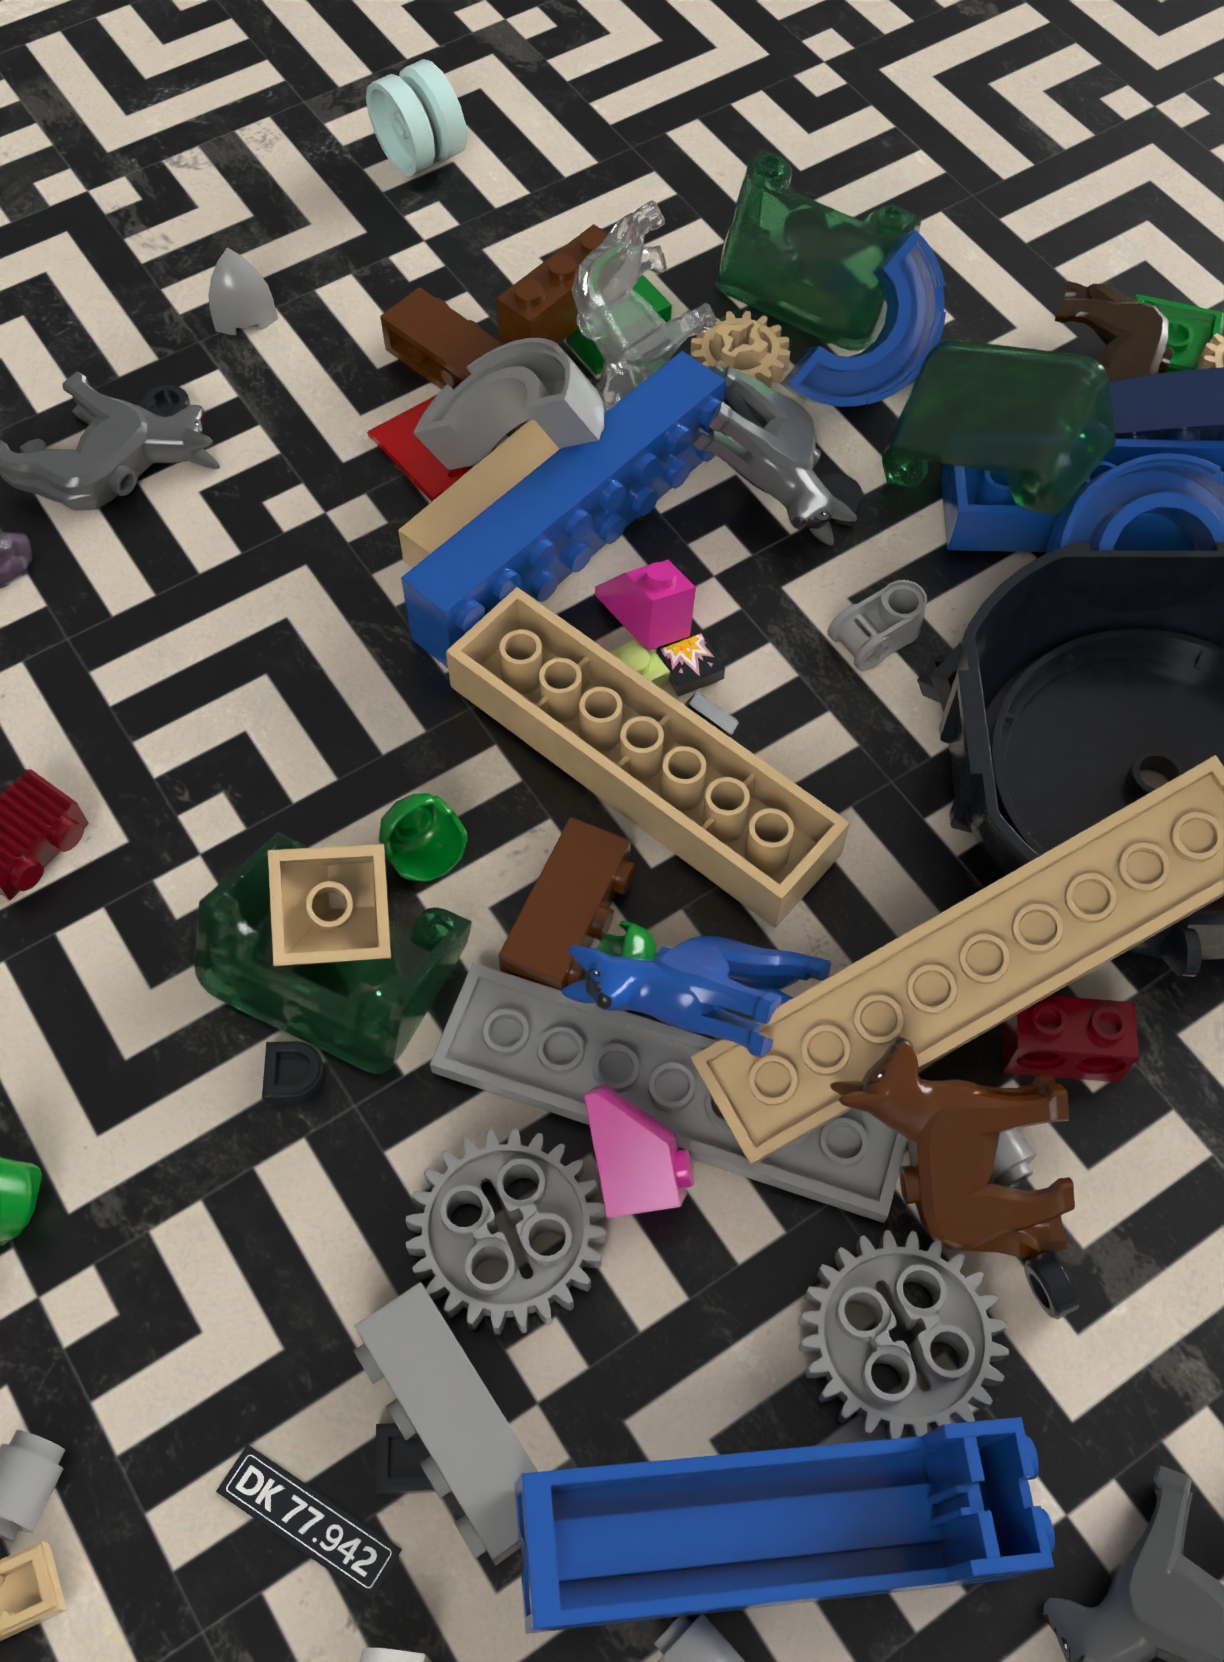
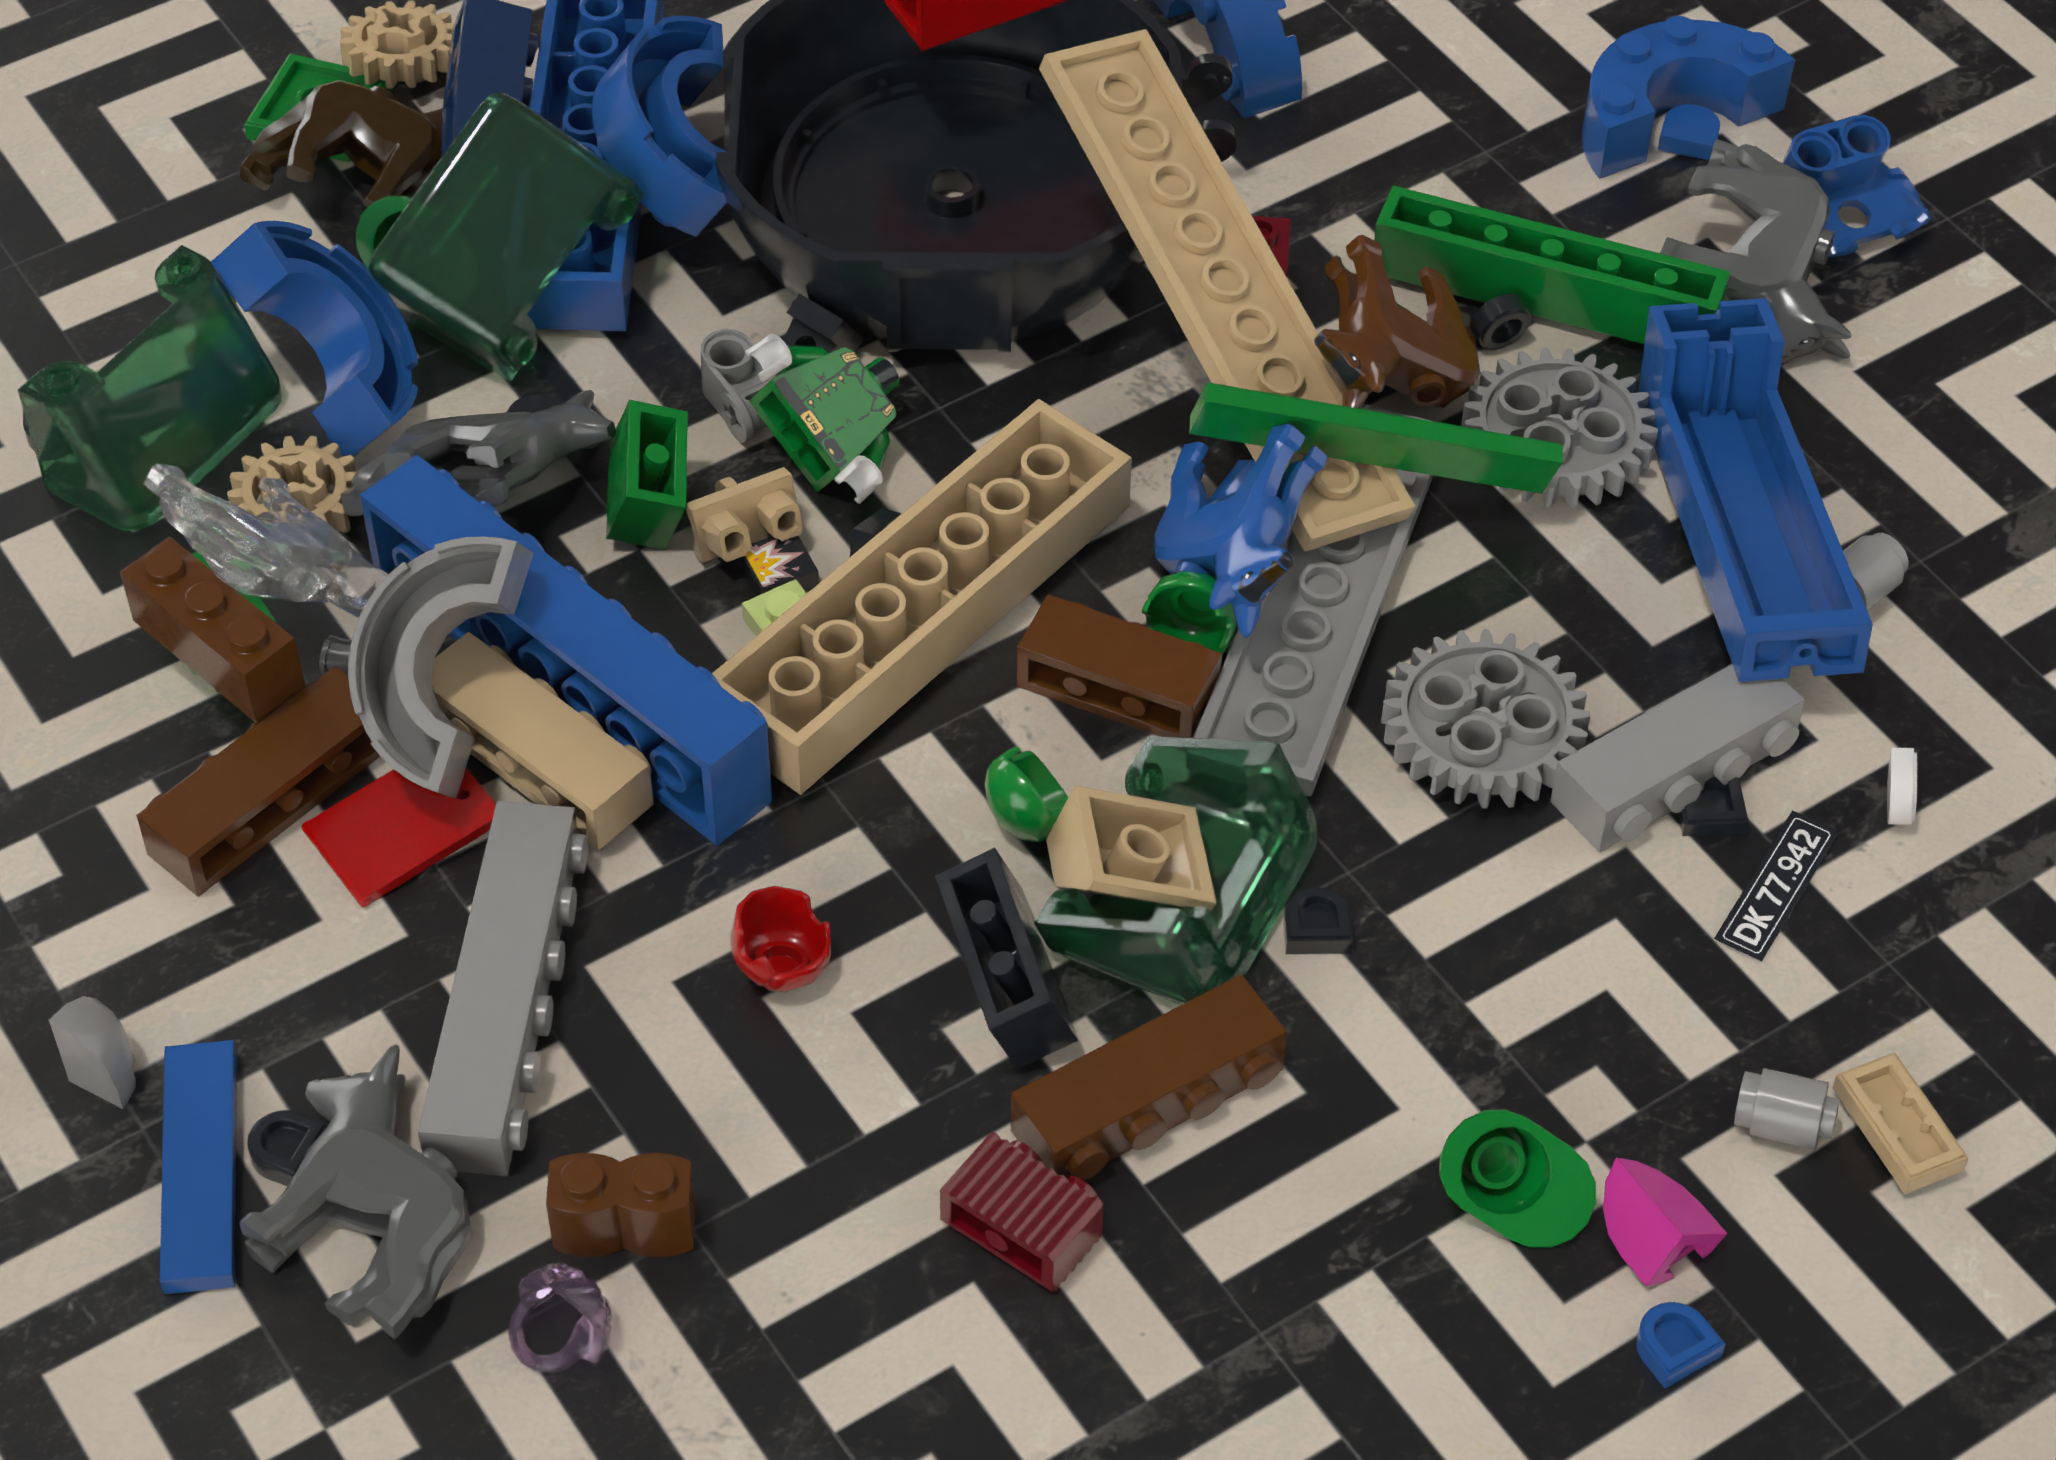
camera: 90 degrees left, 10 degrees down
(67, 581) = (617, 1205): none -> reddish brown brick
(128, 929) = (1150, 1080): none -> reddish brown brick
(161, 364) = (199, 1167): none -> blue tile
(238, 813) = (1006, 958): none -> black brick
(268, 504) = (502, 988): none -> light grey brick
(289, 666) = (780, 939): none -> red hair
(635, 1156) = (1414, 600): dark pink slope -> none
(651, 603) = (703, 581): dark pink slope -> none
(734, 628) = (743, 514): none -> tan hips
(762, 555) = (647, 475): none -> green brick
(798, 1113) = (1379, 438): none -> green tile
(838, 673) = (827, 411): none -> green torso
(1120, 1346) = (1550, 268): none -> green brick

